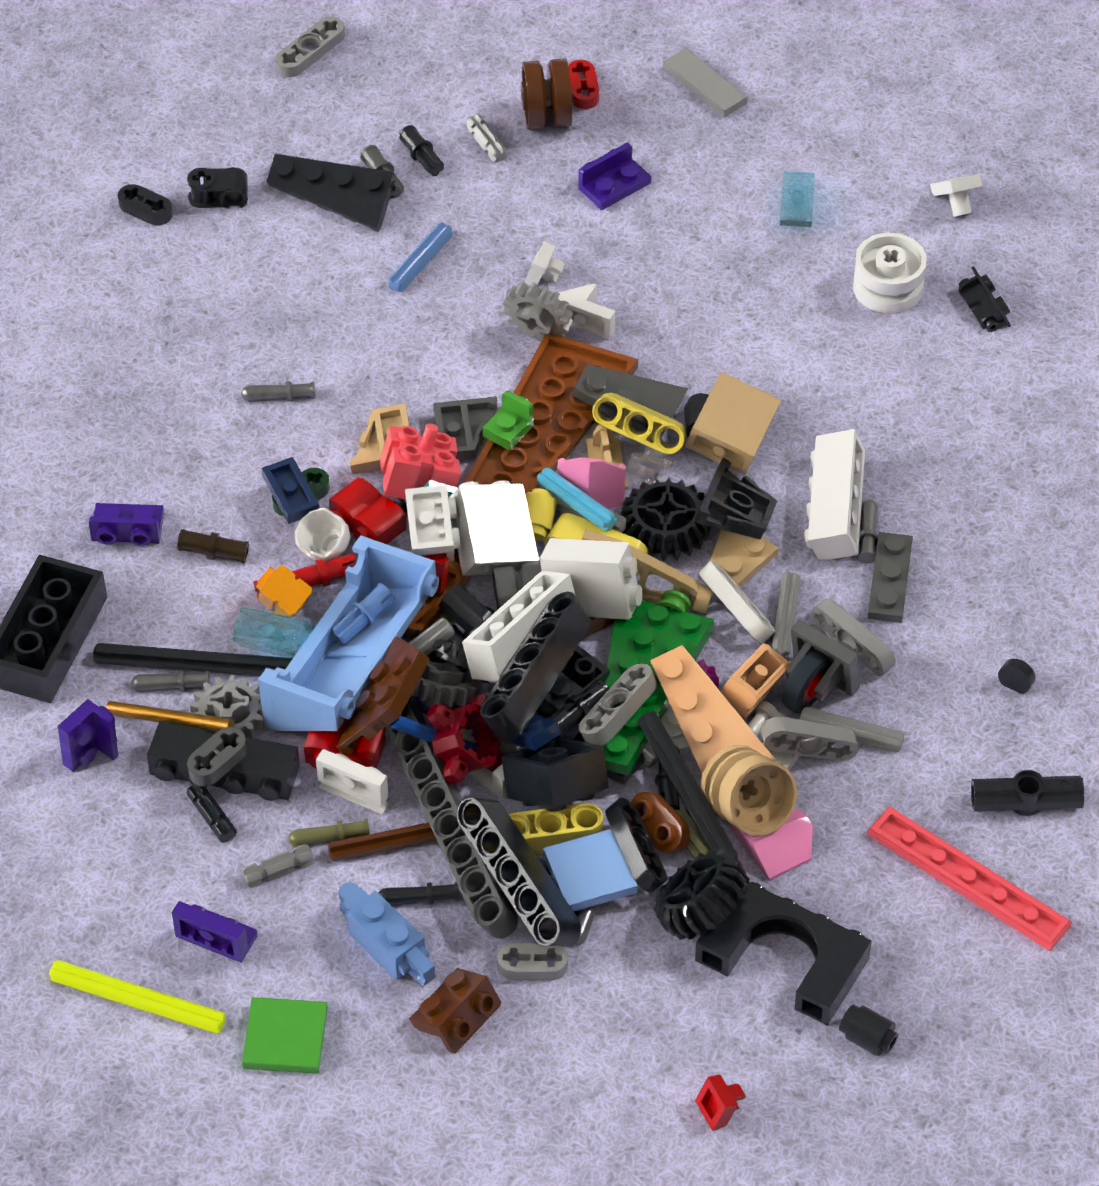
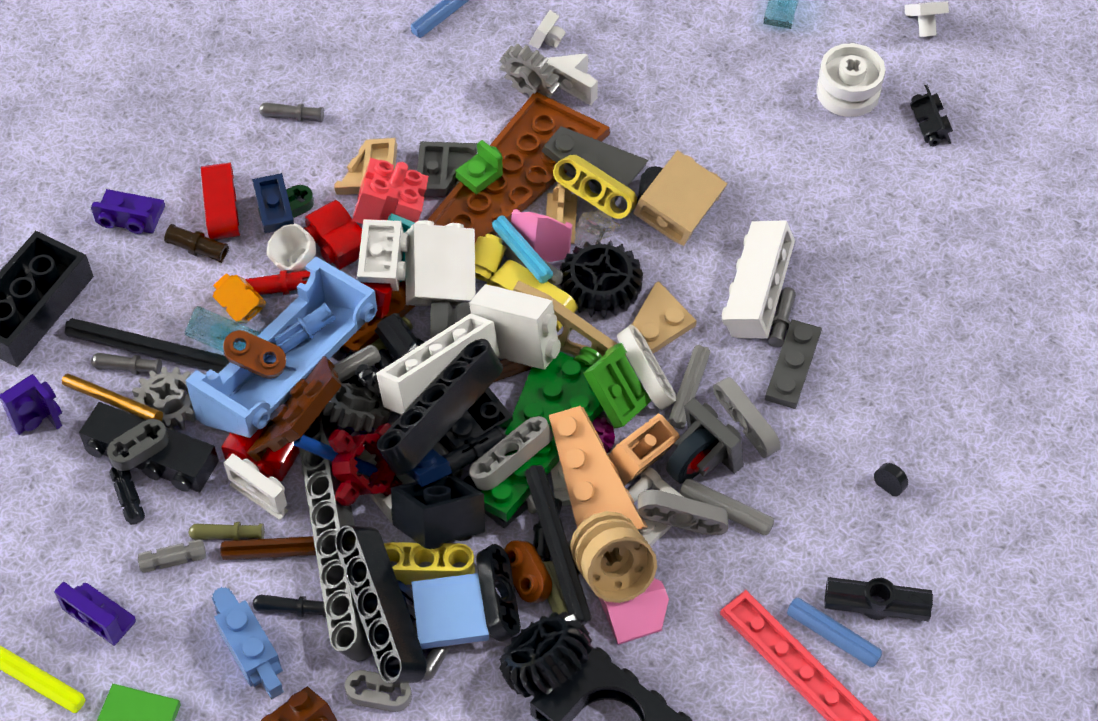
camera: 10 degrees right, 5 degrees up
(229, 497) = (220, 201): none -> red beam
(318, 649) = (252, 356): none -> dark orange plate
(712, 624) = (617, 386): none -> bright green plate
(735, 504) = (664, 274): black wing -> none
(989, 833) = (834, 632): none -> medium blue axle

